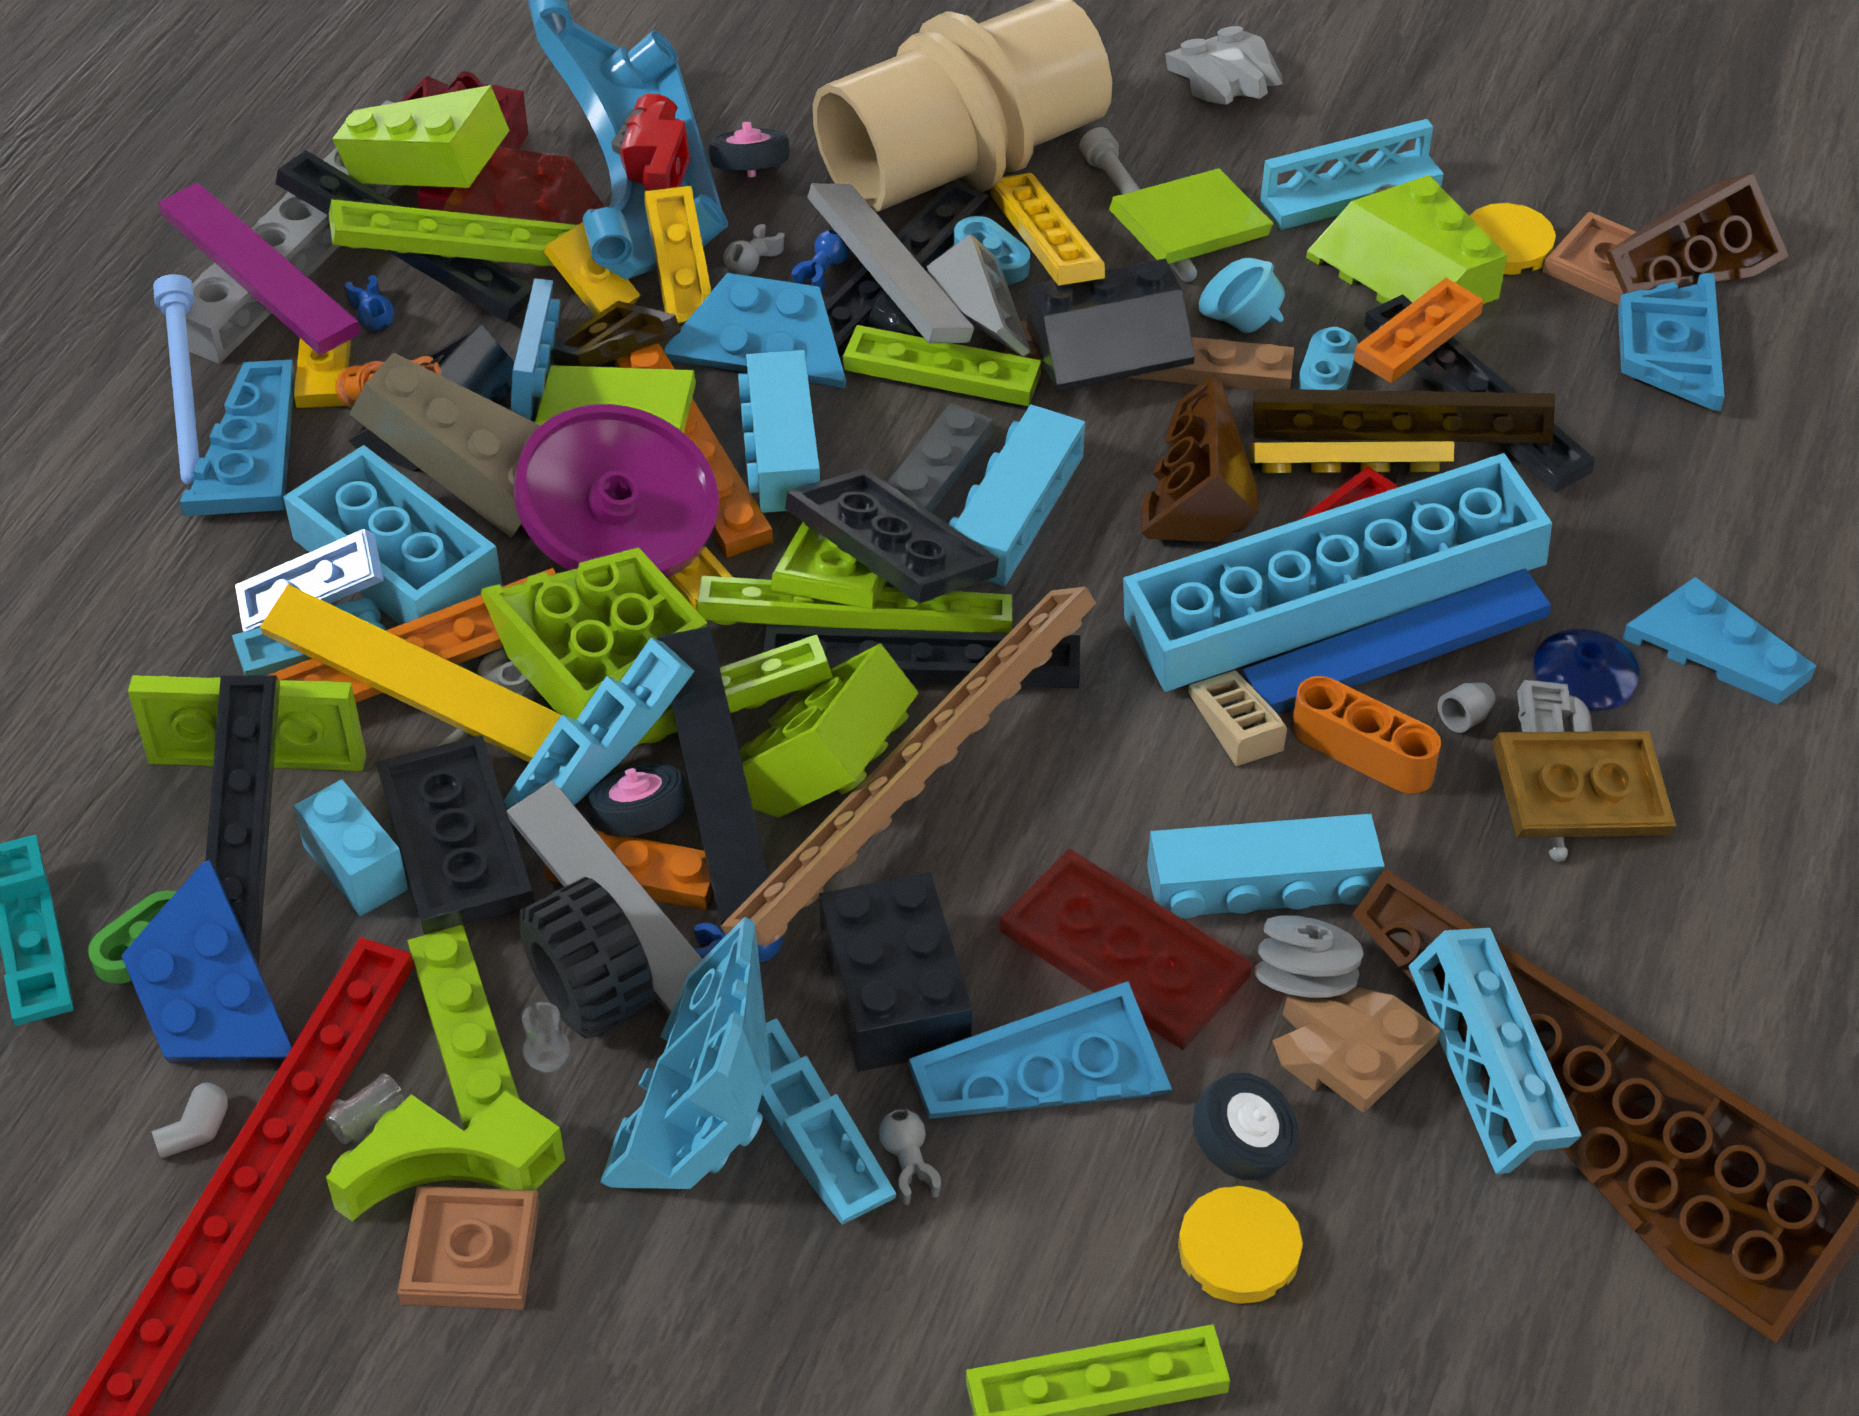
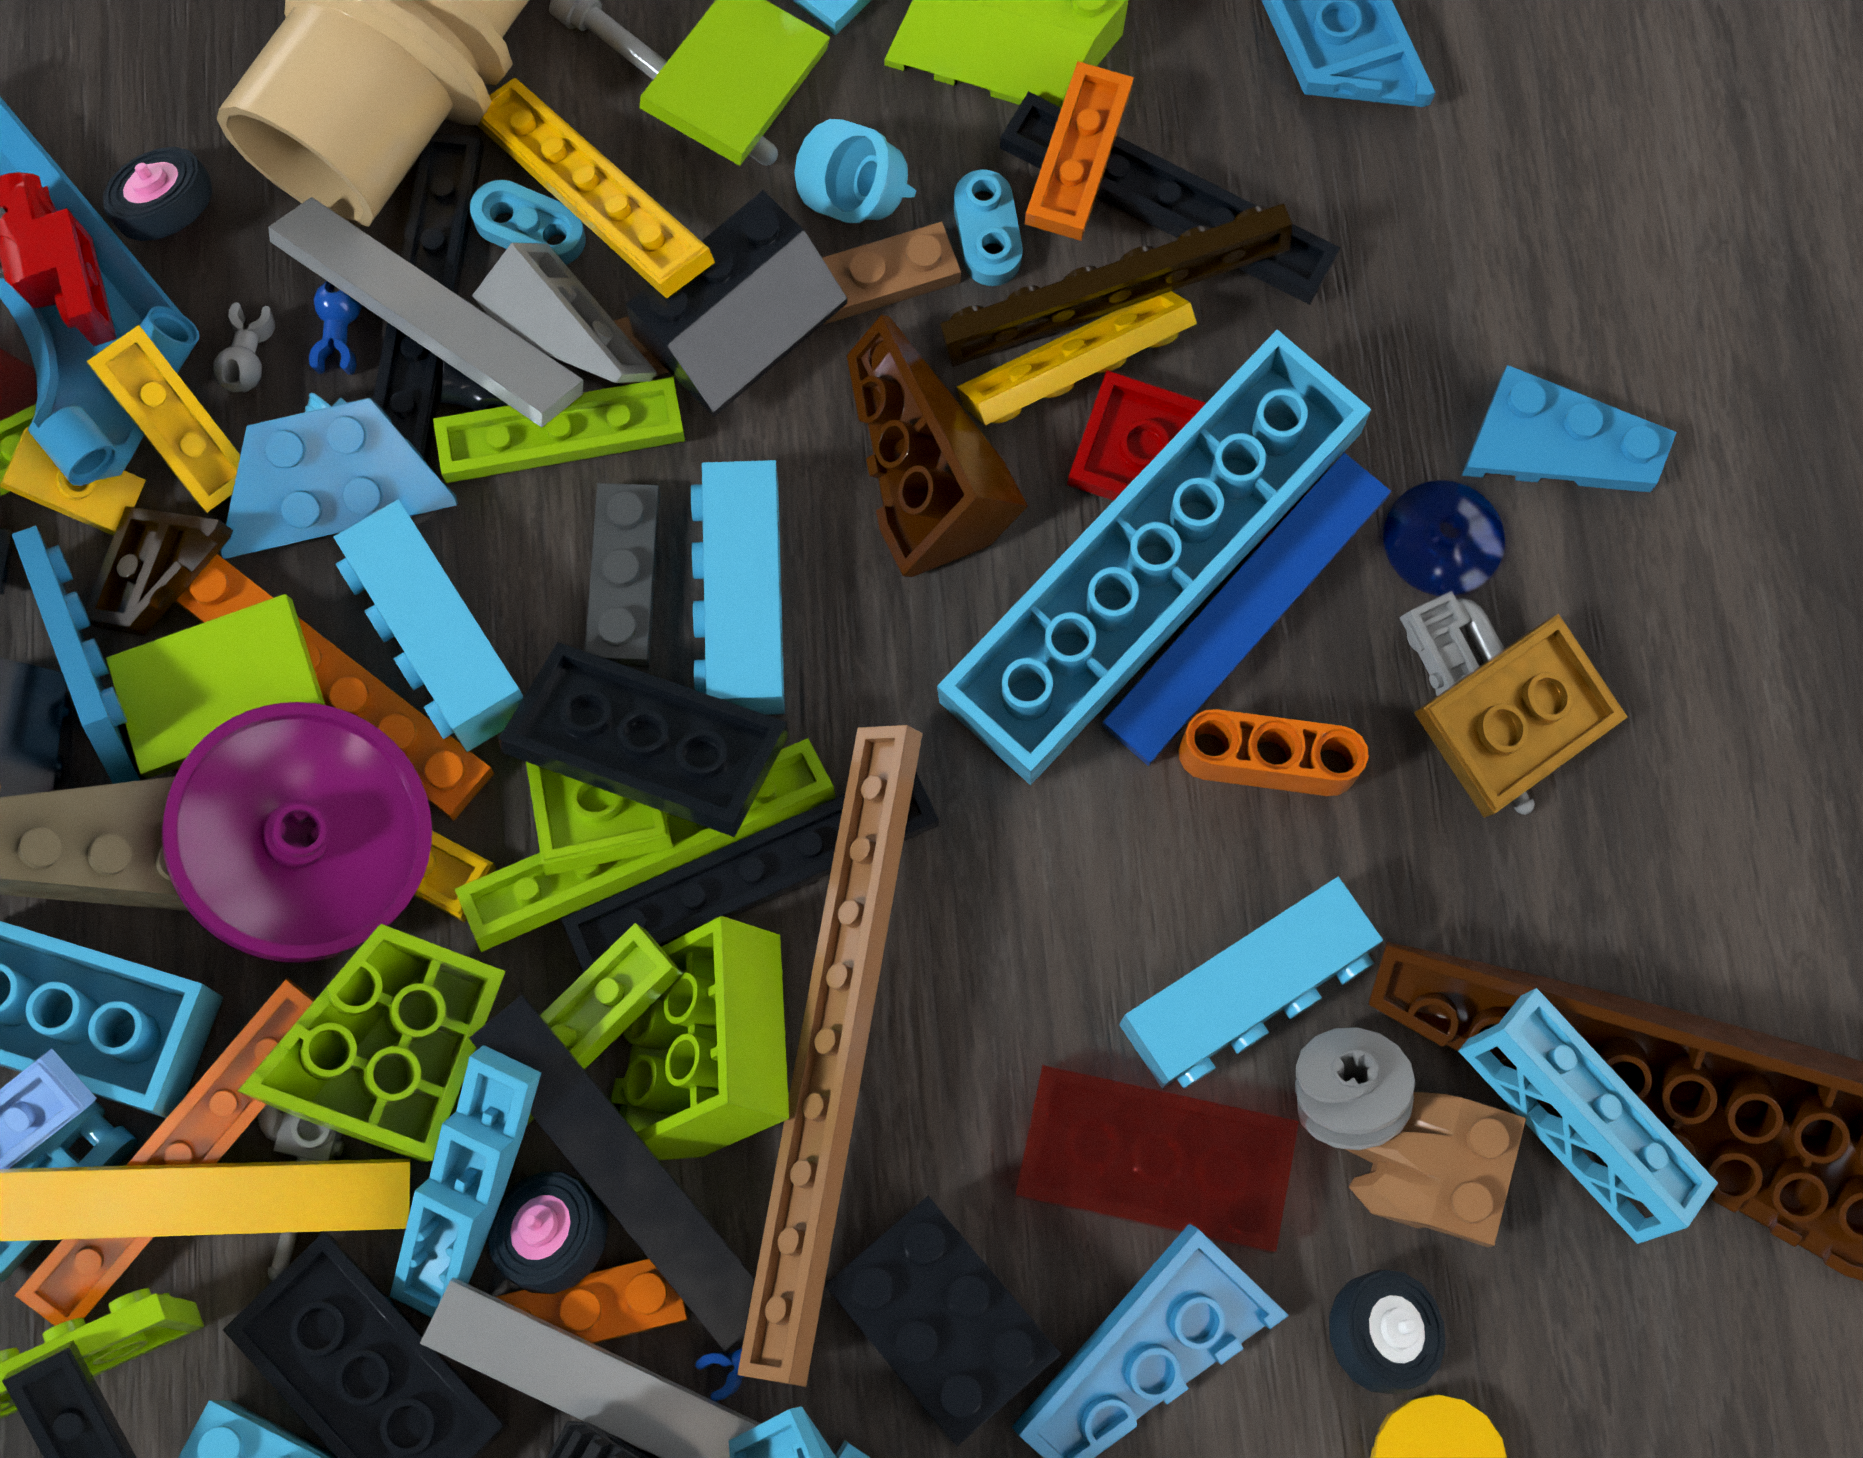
camera: 30 degrees left, 25 degrees up
(1240, 744) = (1154, 778): tan slope -> none
(1466, 706) = (1353, 655): light grey hose -> none

